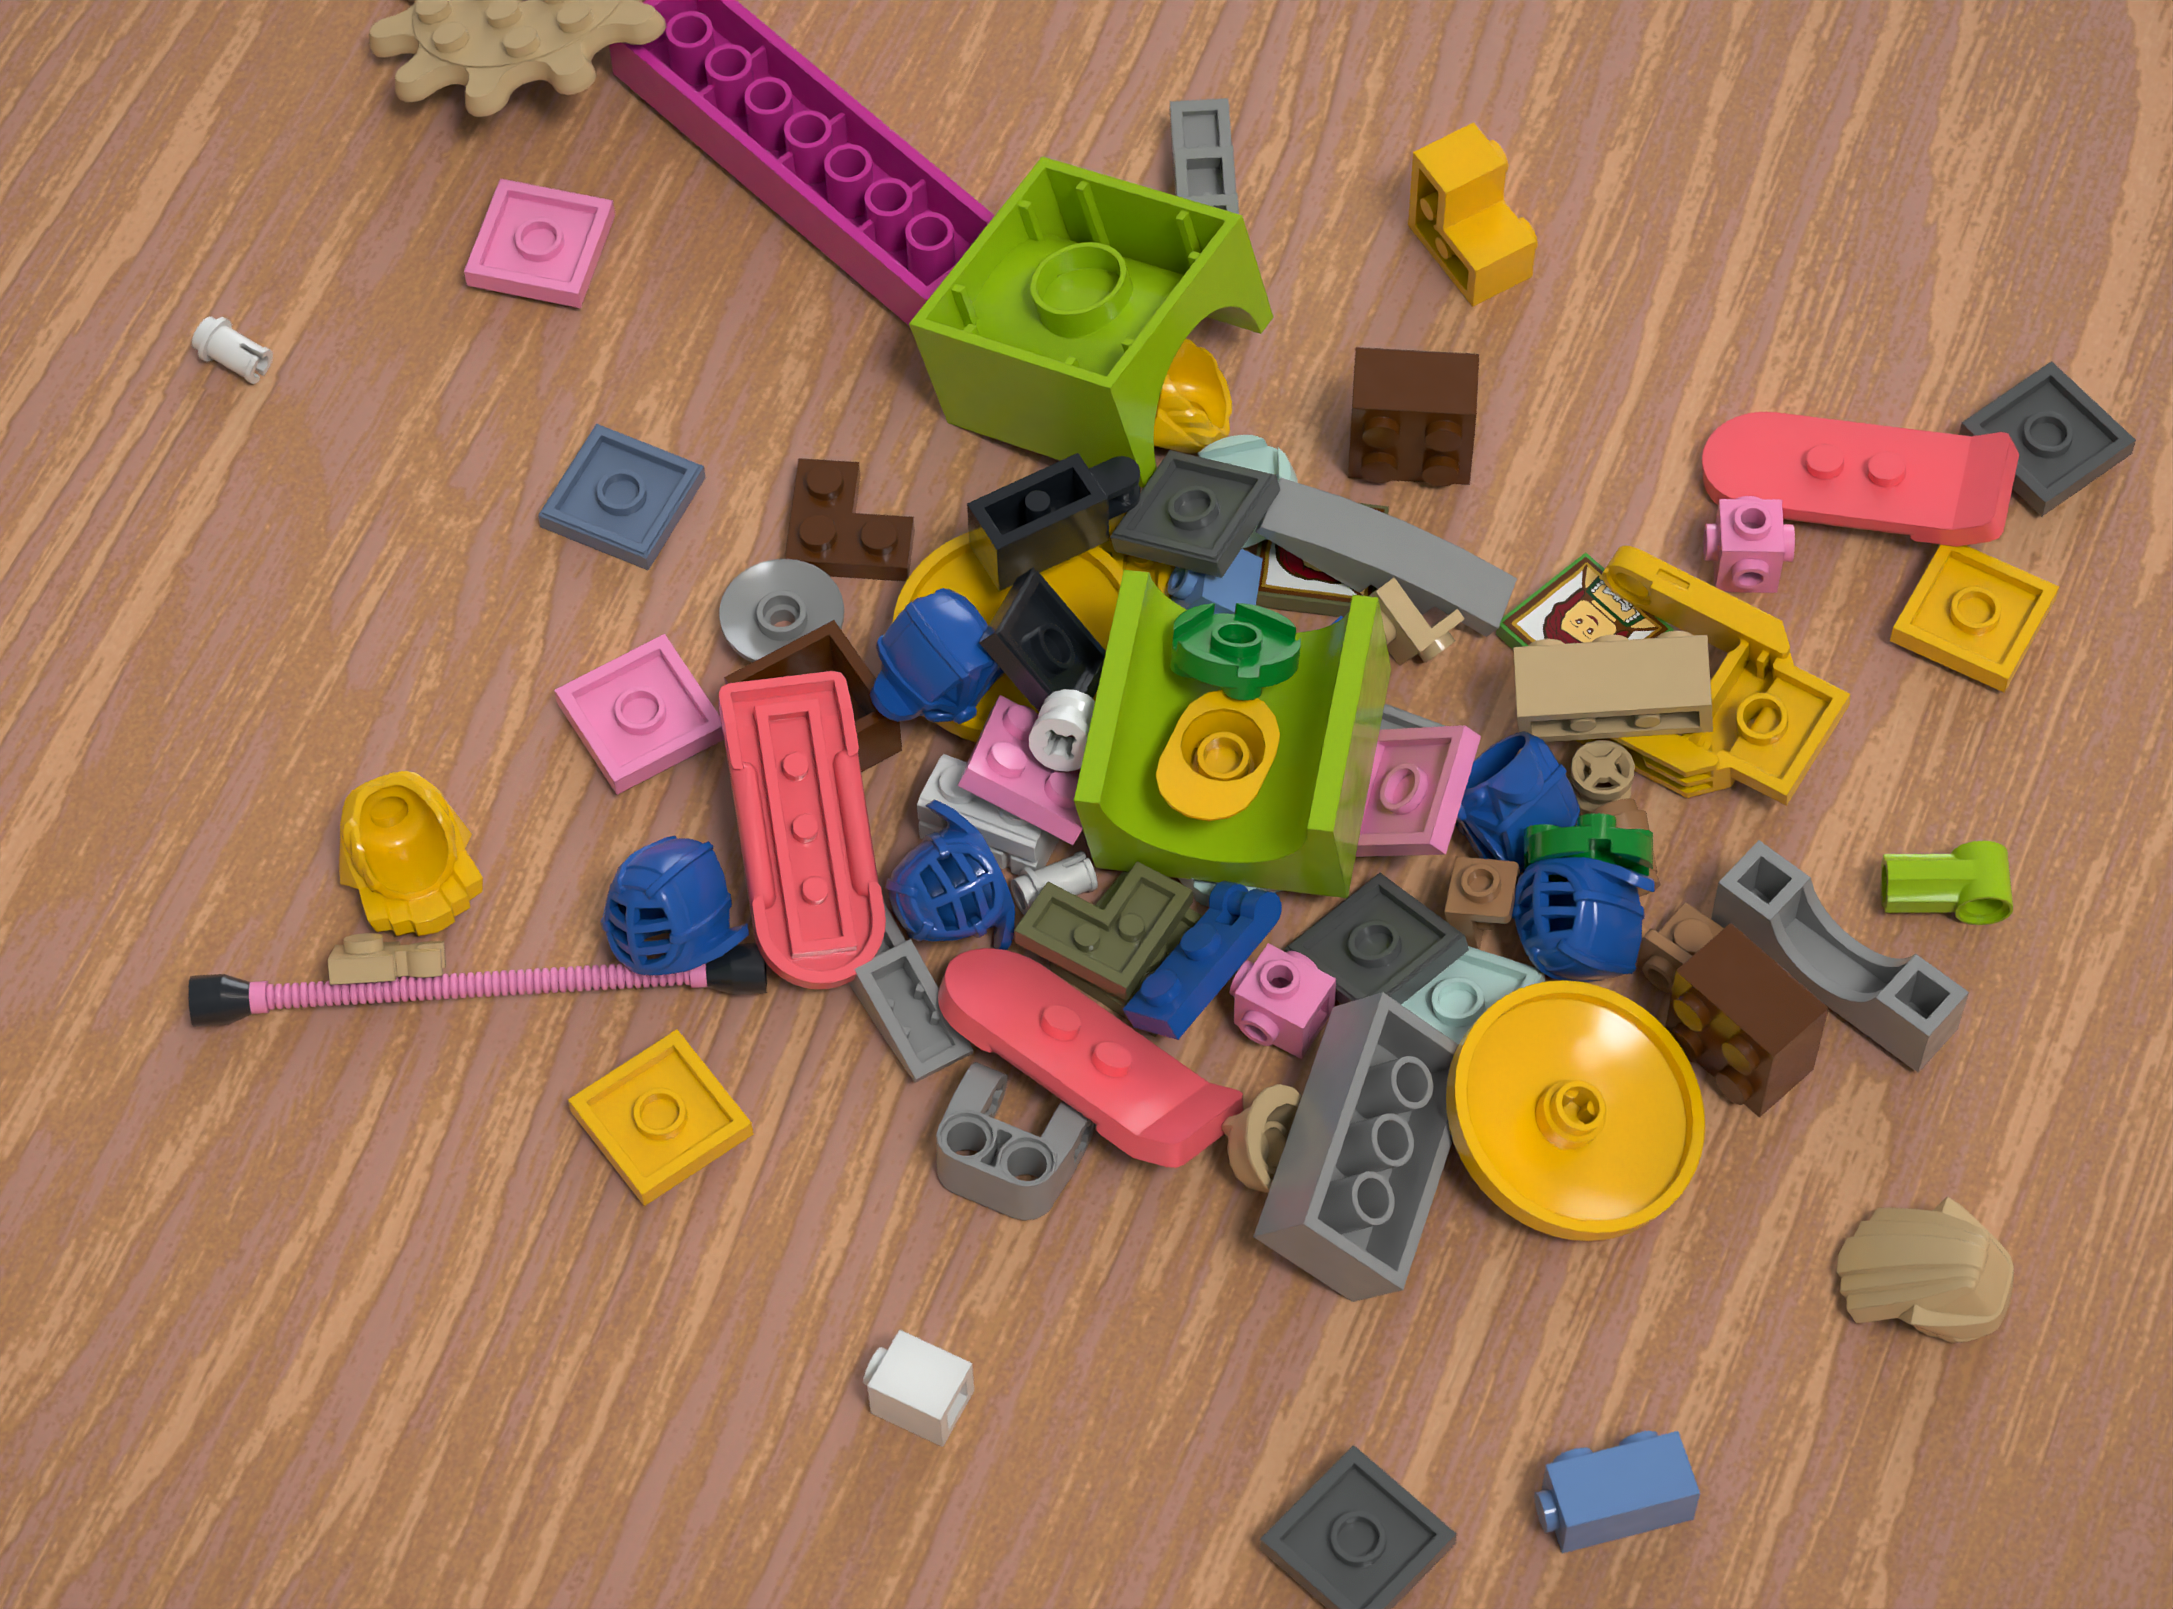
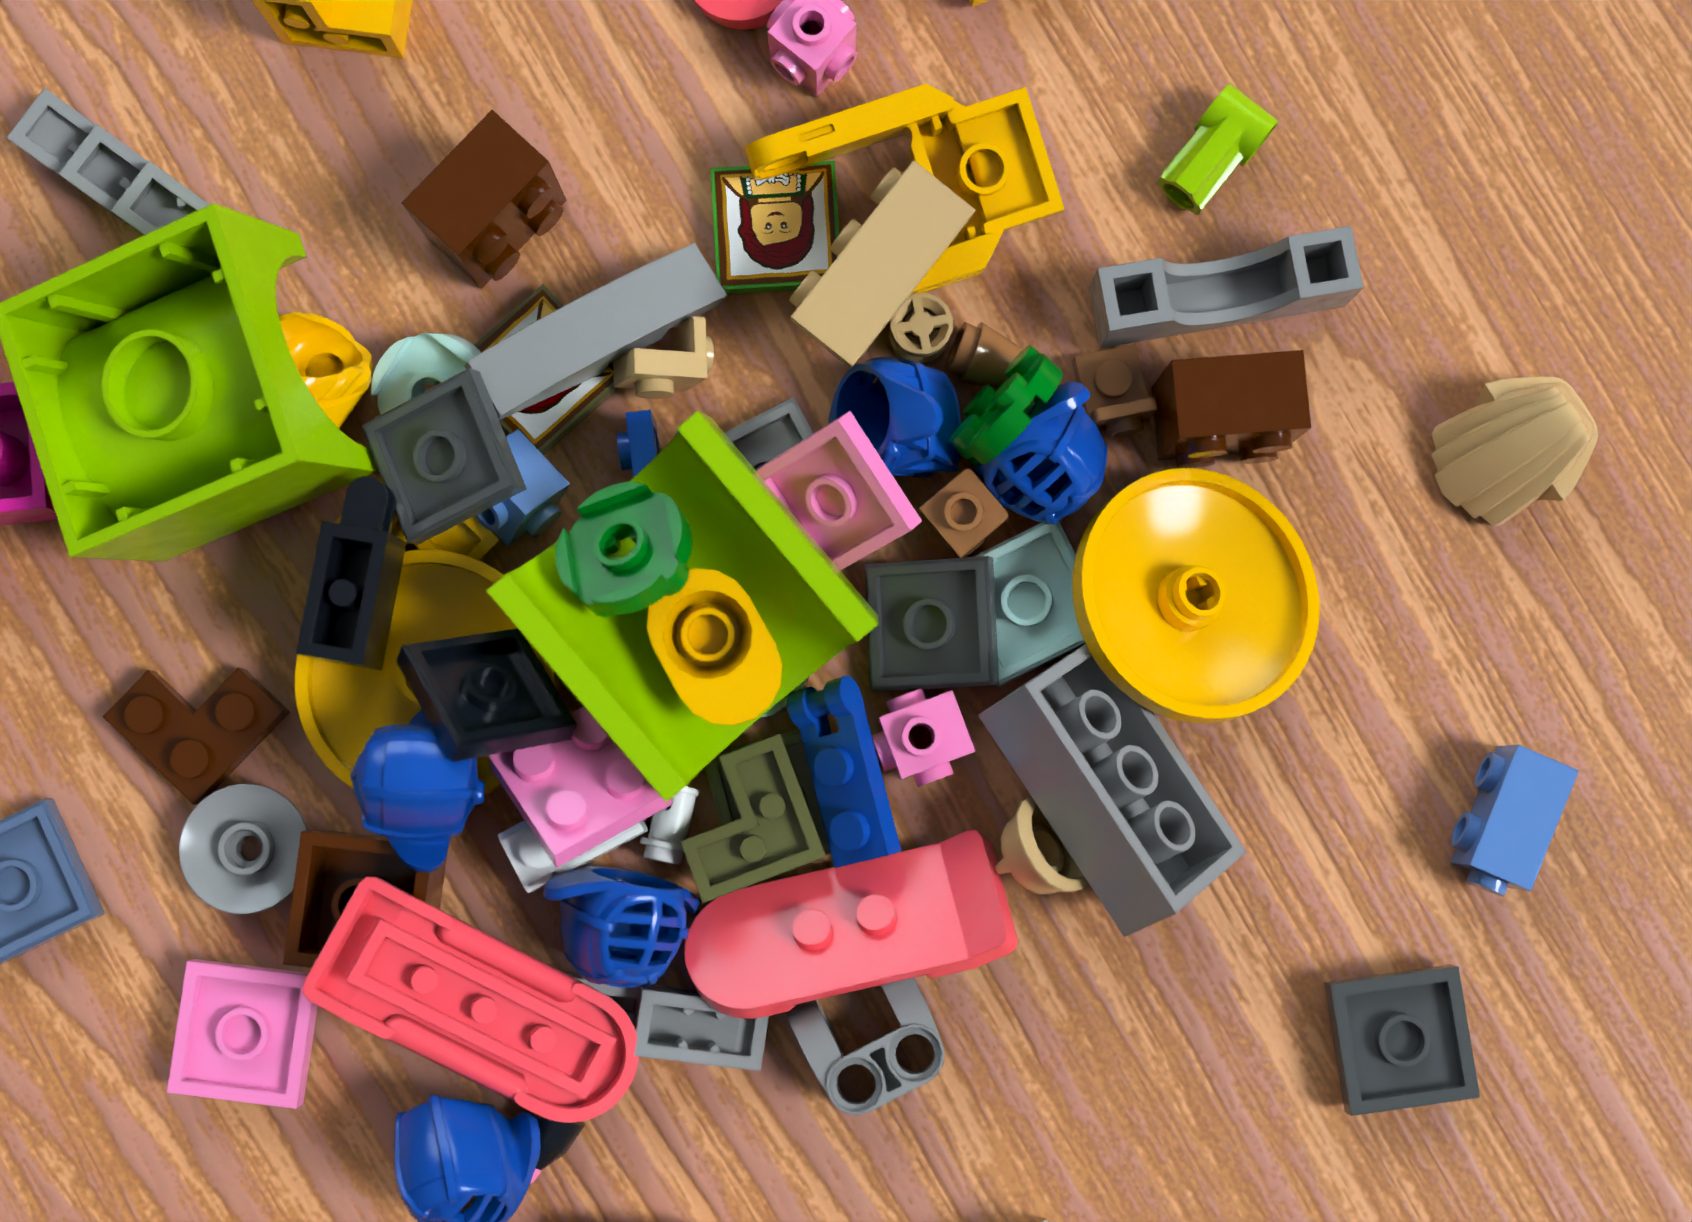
camera: 55 degrees left, 25 degrees up
(1062, 715) = (580, 744): white wheel -> none

